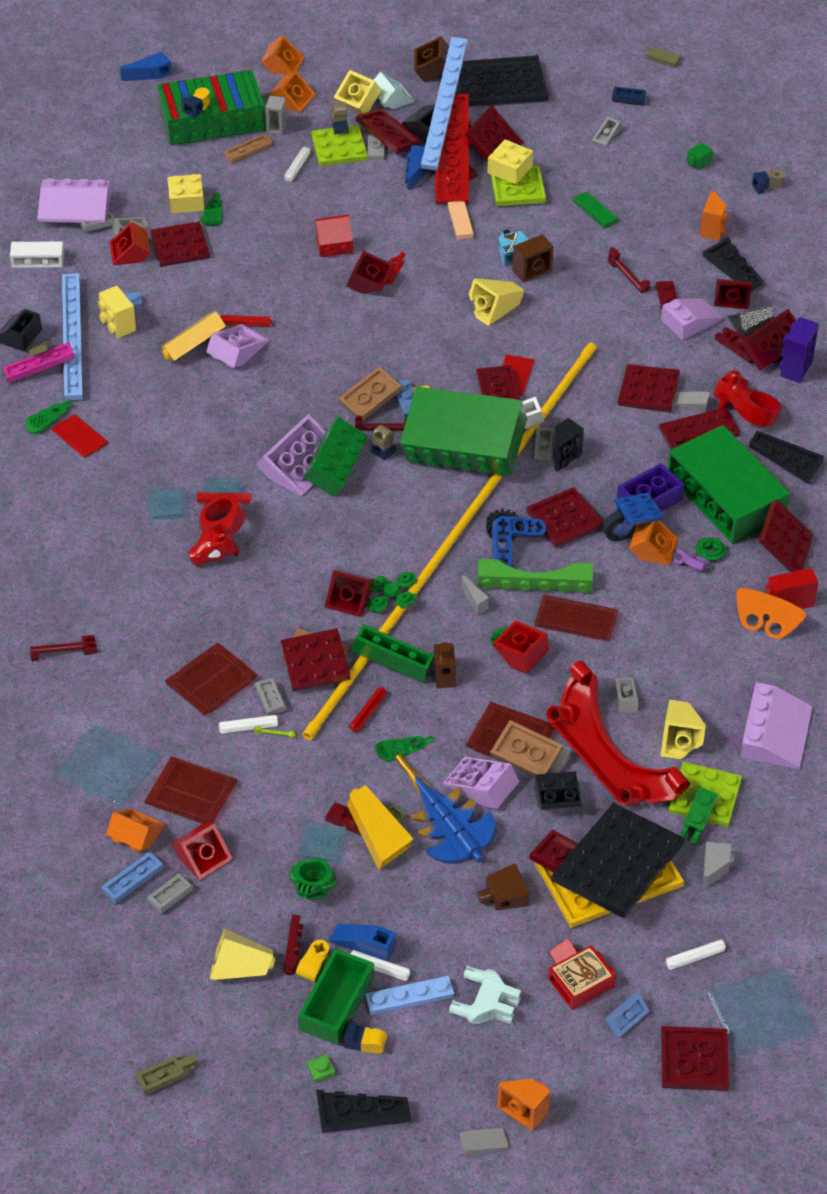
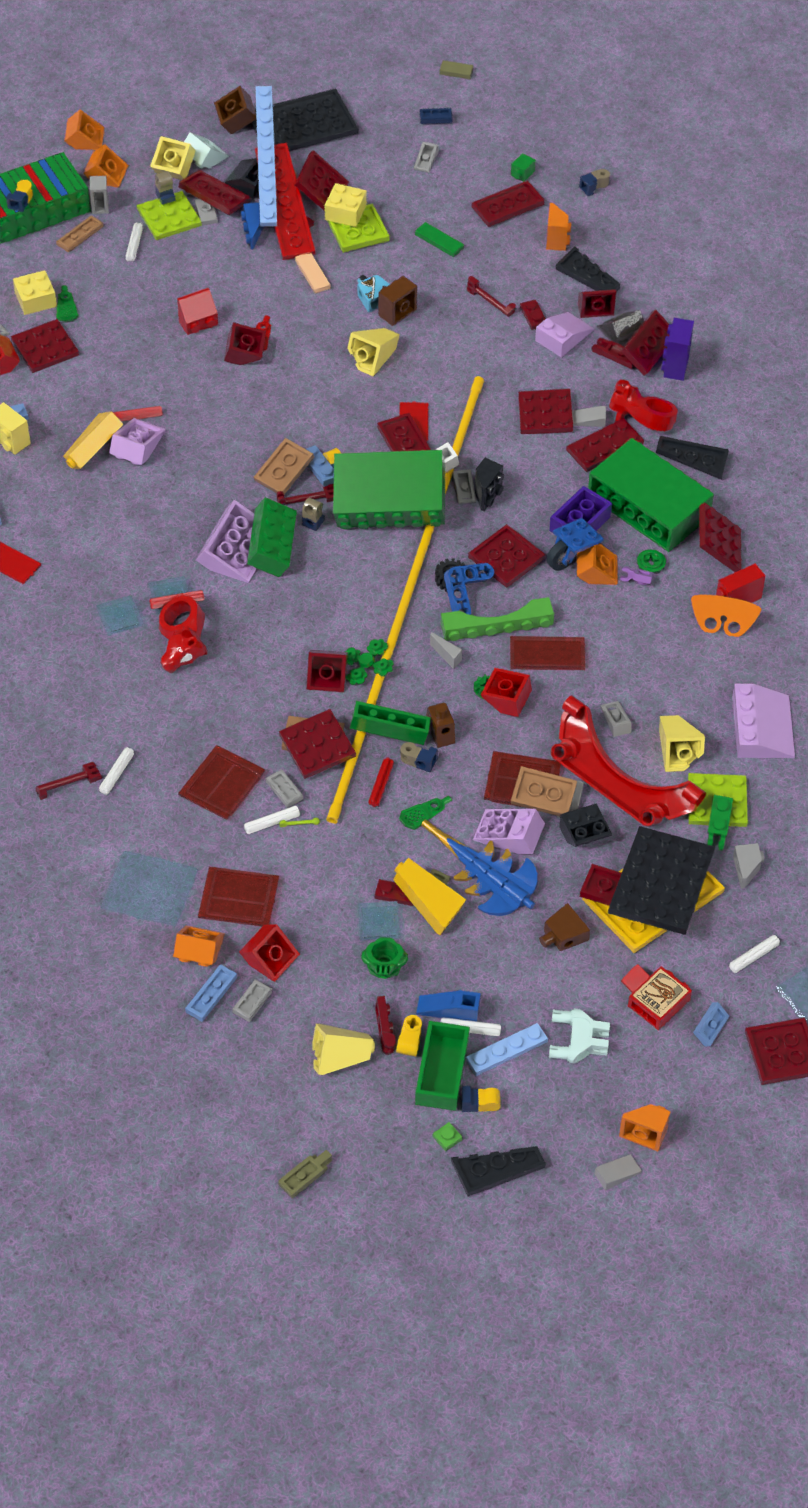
camera: 15 degrees left, 5 degrees up
(111, 649) = (116, 770): none -> white axle
(413, 692) = (418, 756): none -> leg
(674, 187) = (508, 203): none -> dark red plate

